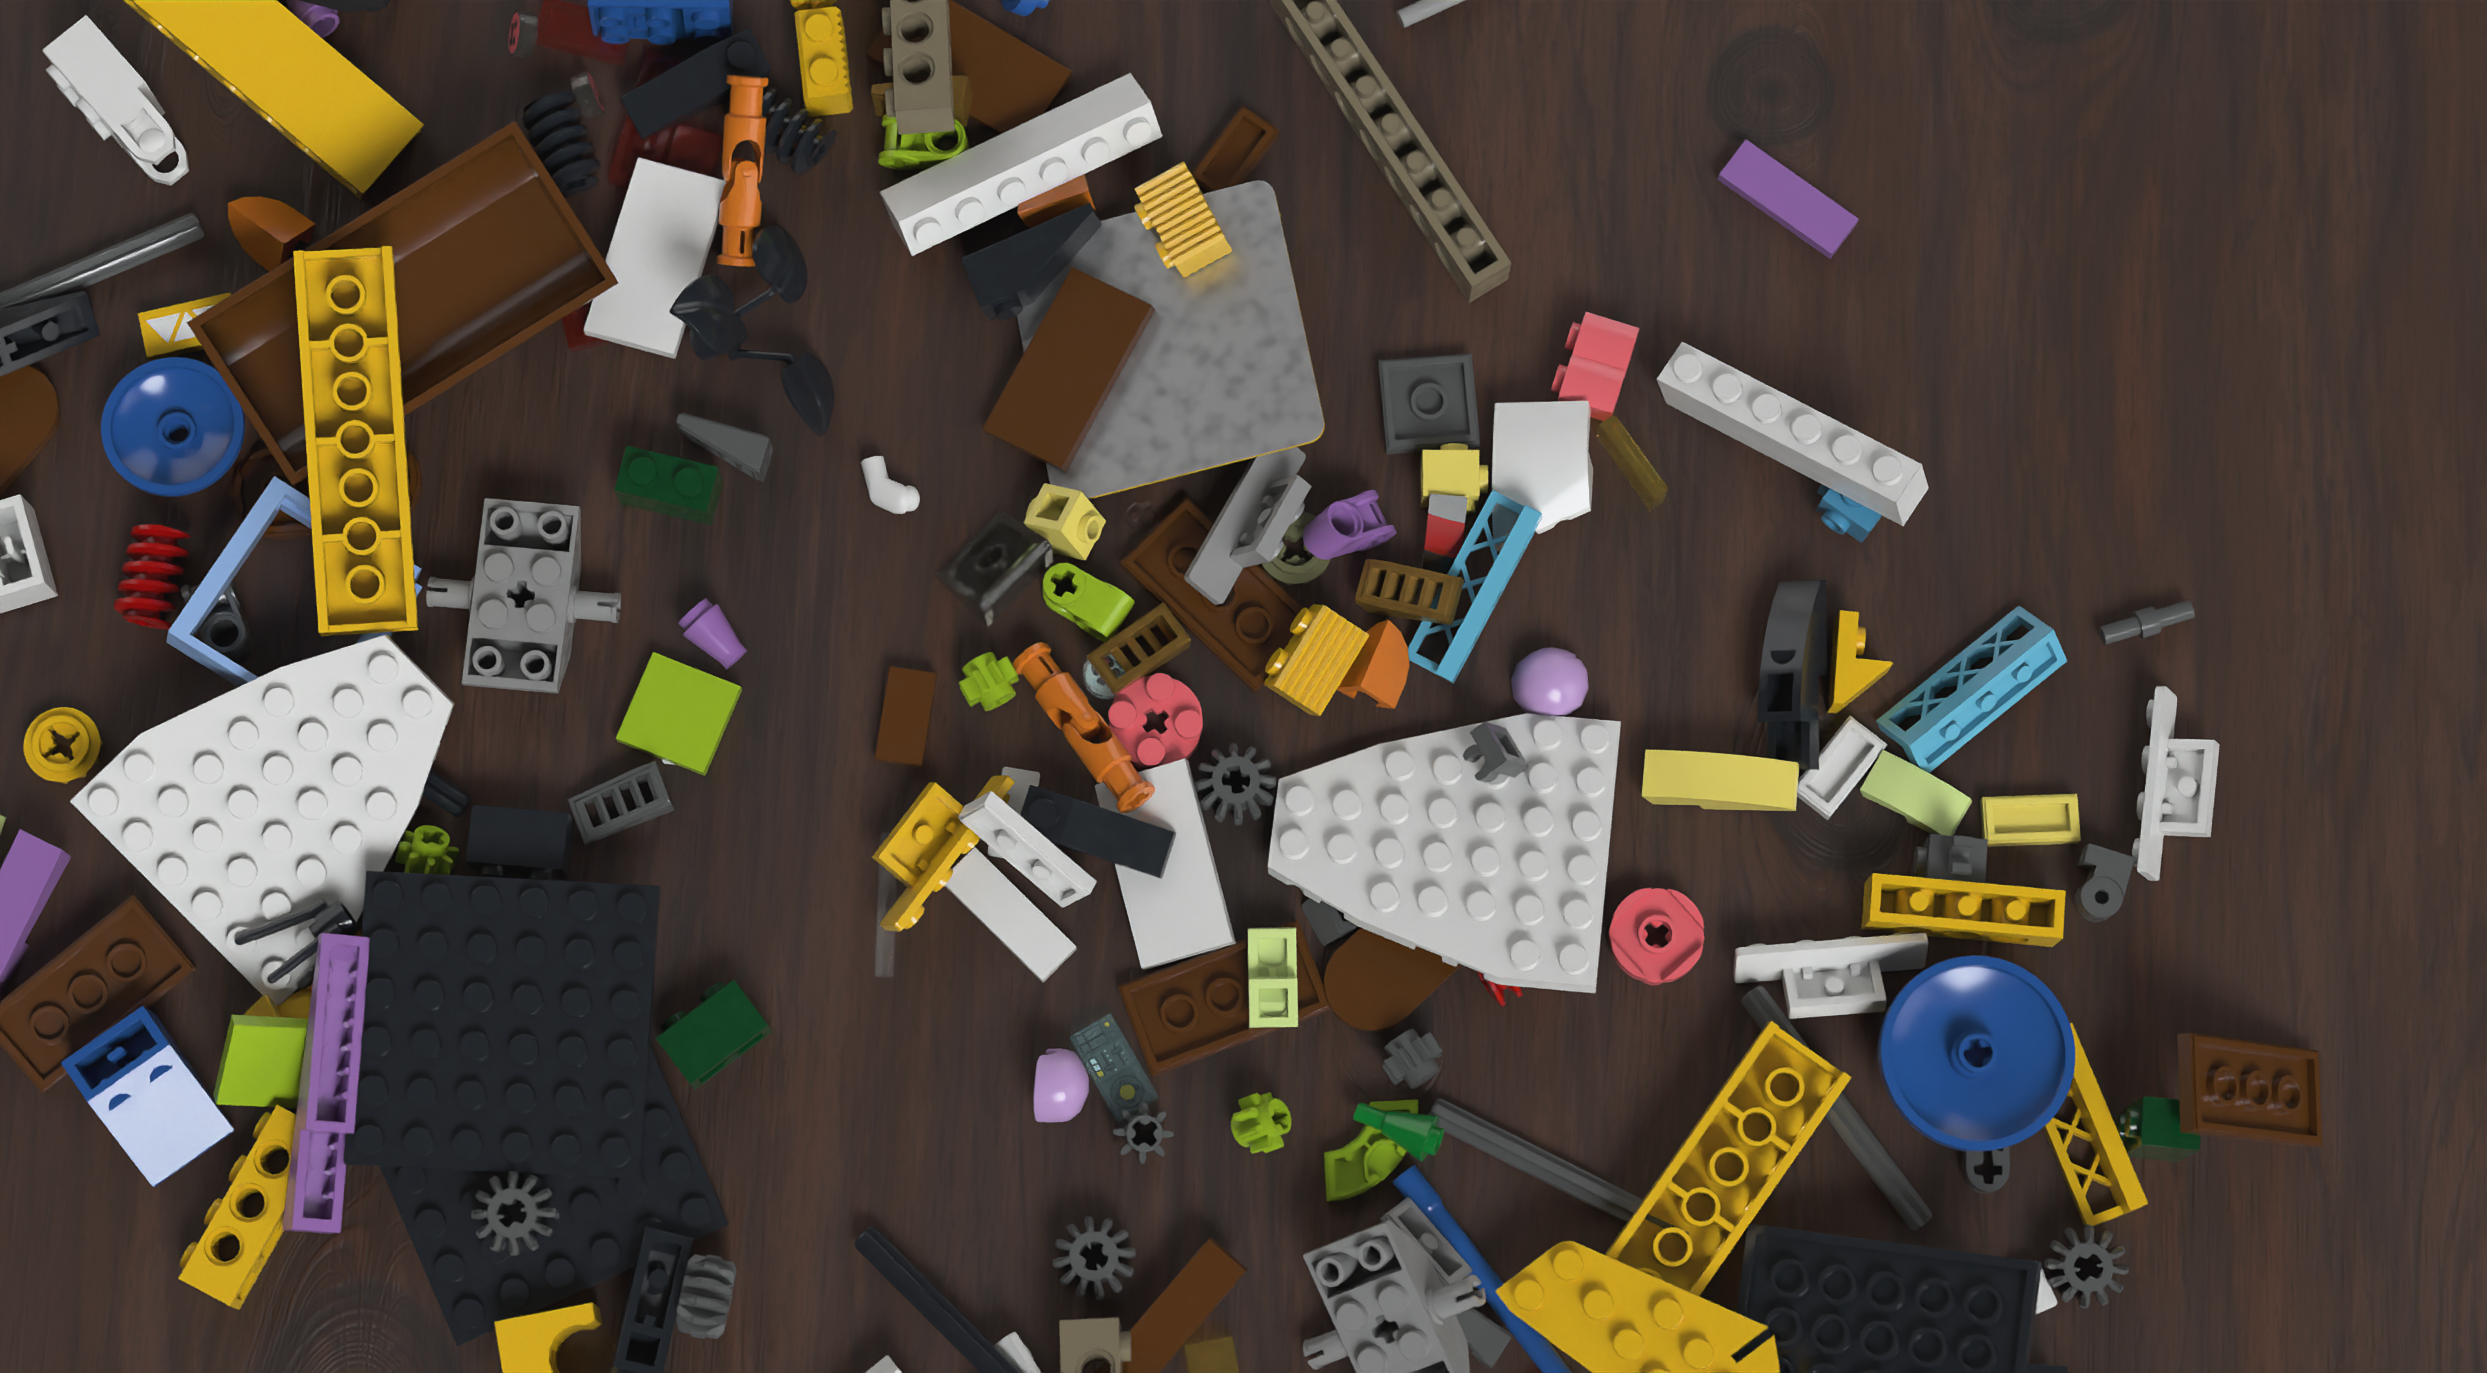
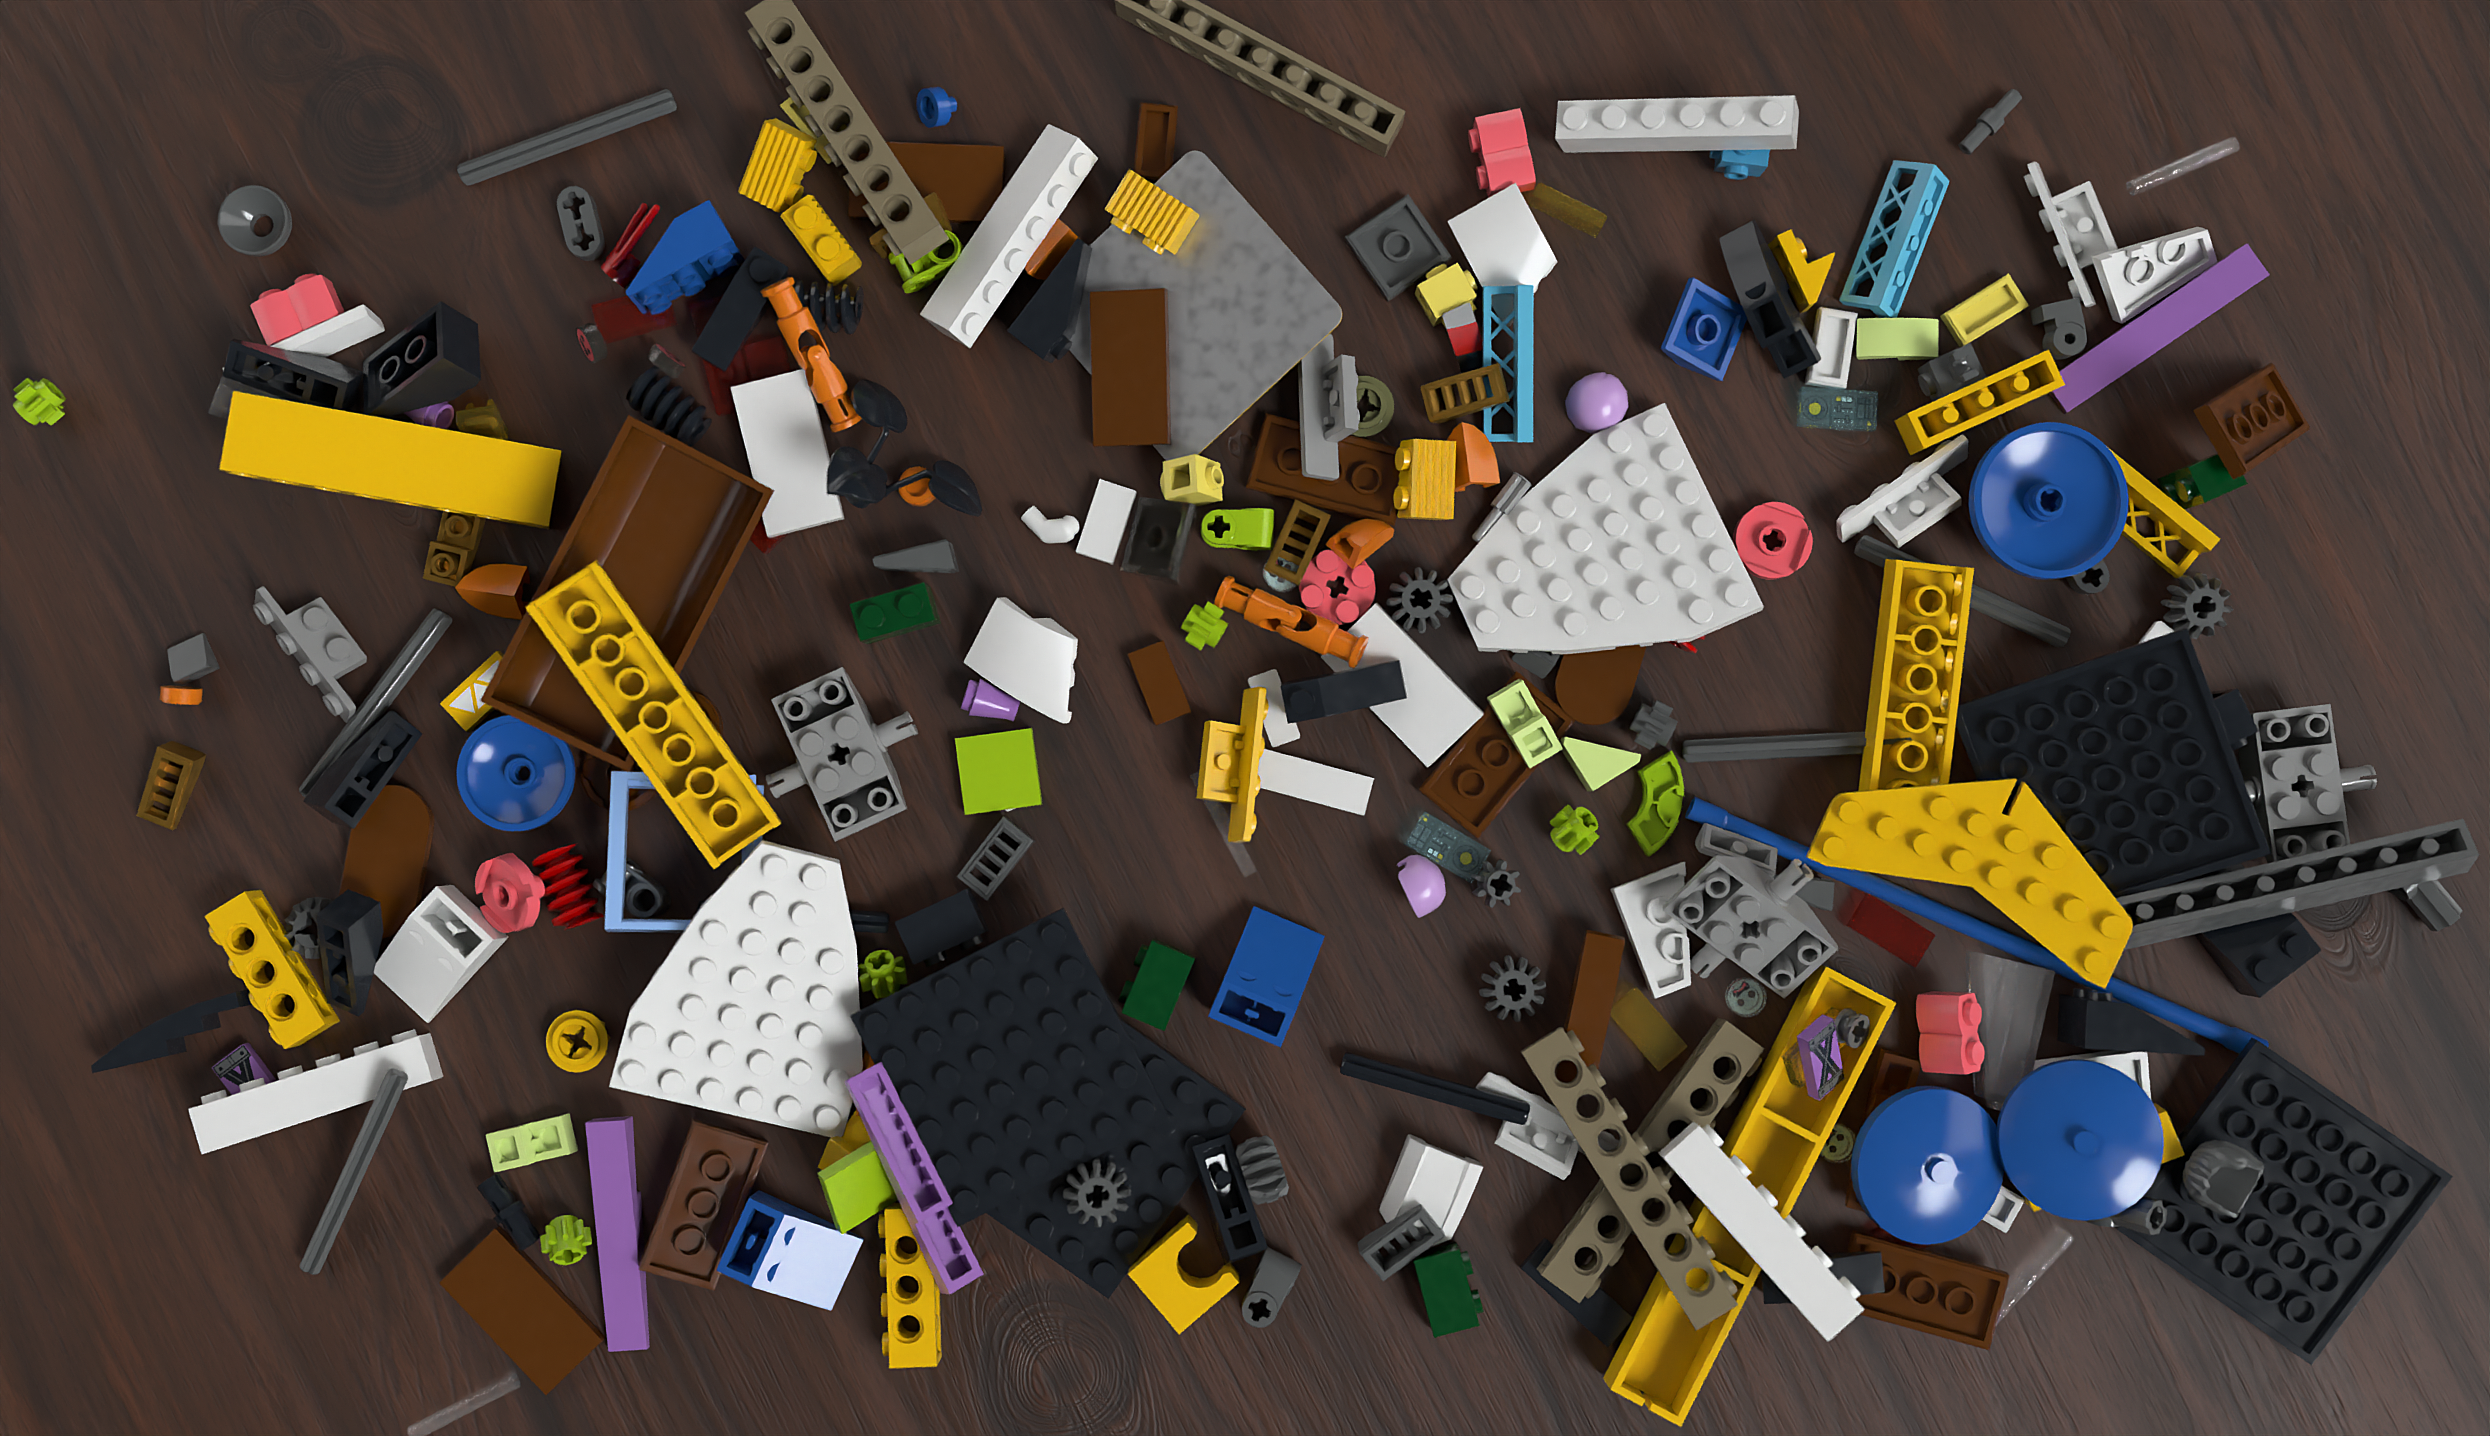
camera: 25 degrees left, 10 degrees up
(50, 184) = (318, 644): none -> light grey bracket
(88, 547) = (509, 893): none -> coral plate
(114, 98) = (324, 558): white brick -> none
(252, 164) = (455, 548): none -> pearl gold slope
(329, 919) = (846, 1064): black plant -> none
(361, 50) = (482, 421): none -> clear yellow tile
(767, 373) = (918, 492): none -> orange tile
(779, 609) = (1026, 658): none -> white slope
(834, 1091) = (1266, 976): none -> blue slope
(949, 516) = (1106, 521): none -> white tile
(1027, 849) = (1303, 732): white tile -> none
(1208, 684) = (1360, 540): none -> orange brick
(1284, 1291) = (1656, 936): none -> white wing
(1328, 1065) = (1595, 762): none -> yellowish green slope
(1348, 527) = (1394, 371): medium lavender piece -> none
(1388, 732) = (1503, 503): none -> light grey axle
(1411, 1131) = (1681, 777): green cone -> none
(1498, 750) = (1595, 473): dark grey tile -> none
(1707, 669) = (1704, 330): none -> blue slope
(1719, 781) = (1758, 405): light yellow slope -> none
(1811, 838) = (1837, 409): none -> clear light blue tile
(2206, 941) = (2158, 326): none -> medium lavender slope
(2235, 875) = (2151, 270): none -> white wing
(2335, 786) = (2182, 166): none -> clear bar

